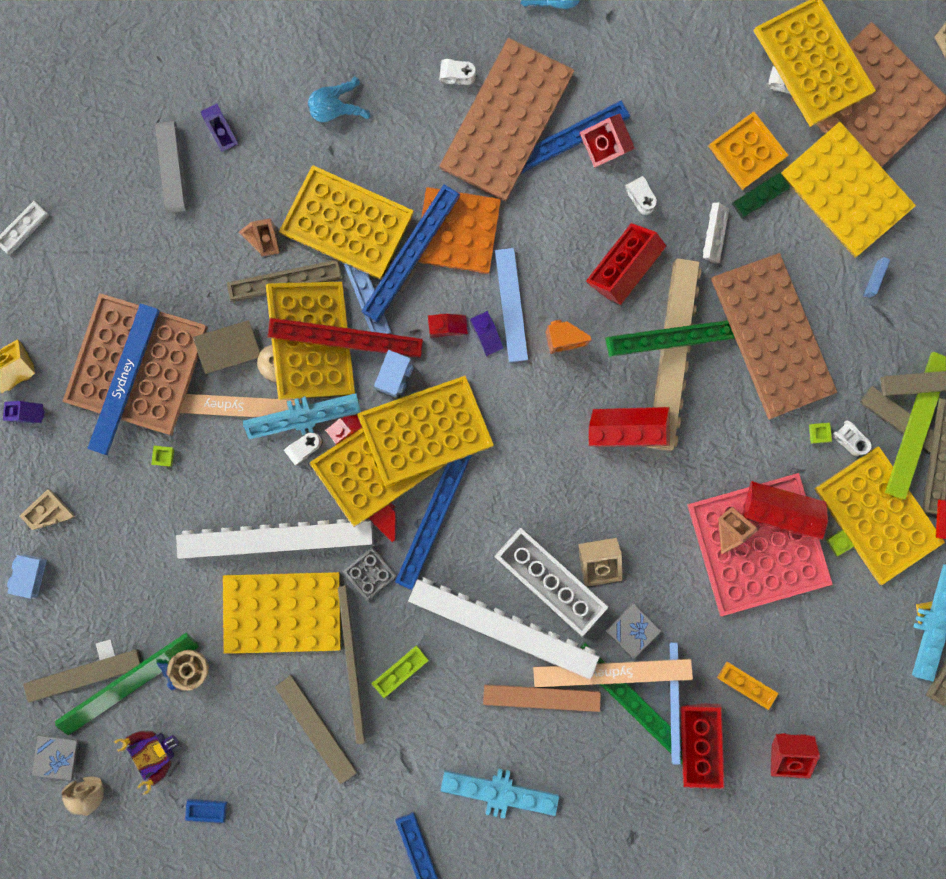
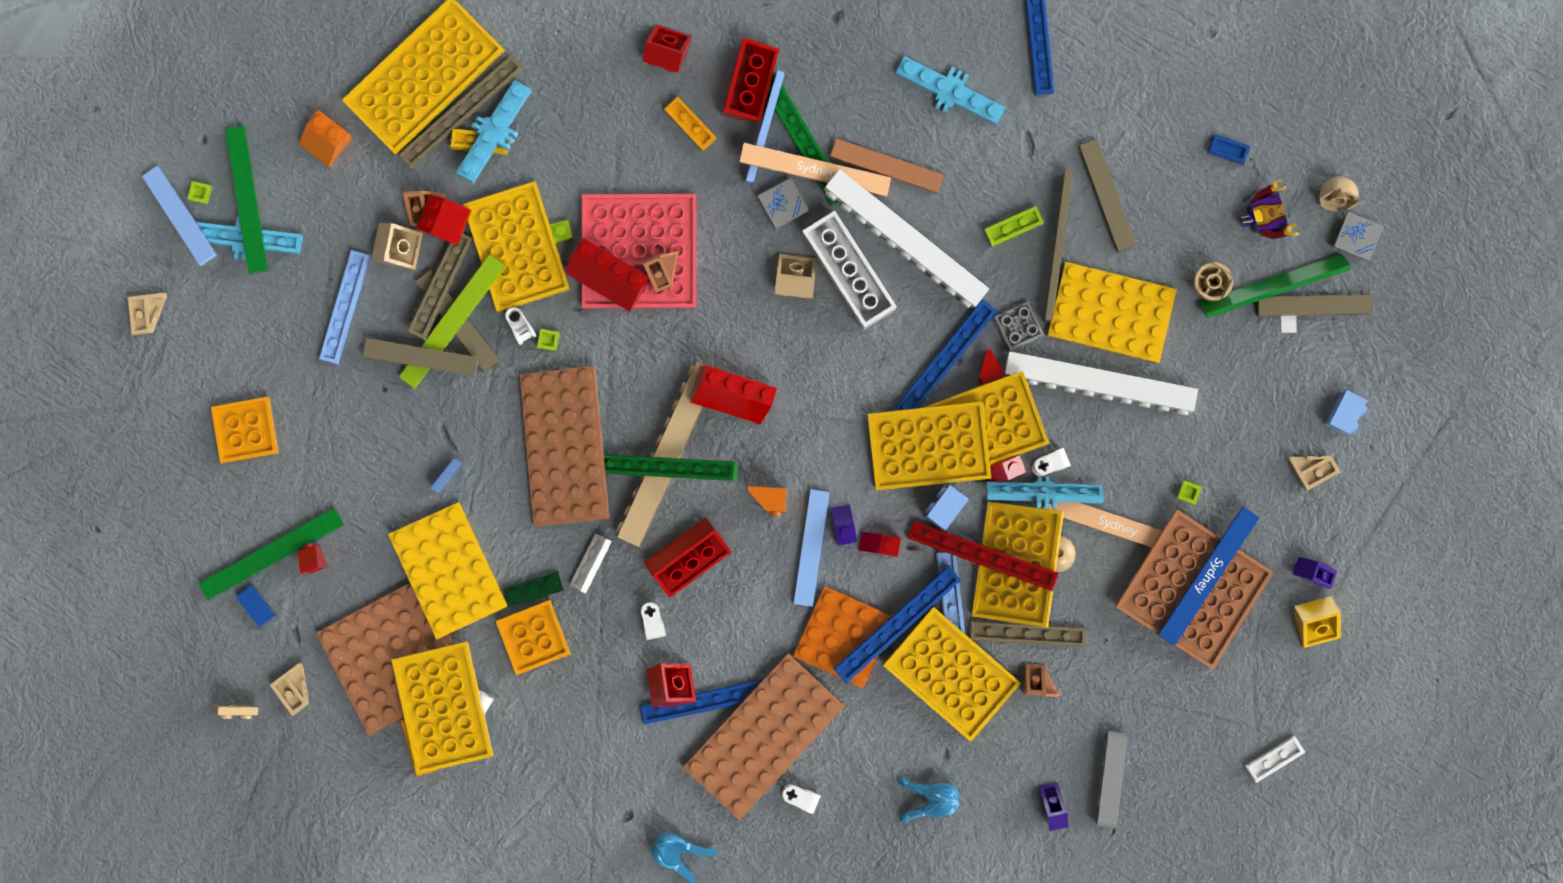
camera: 160 degrees left, 0 degrees up
(164, 667) = (1235, 289): blue piece -> none
(226, 346) = (1100, 581): dark tan tile -> none

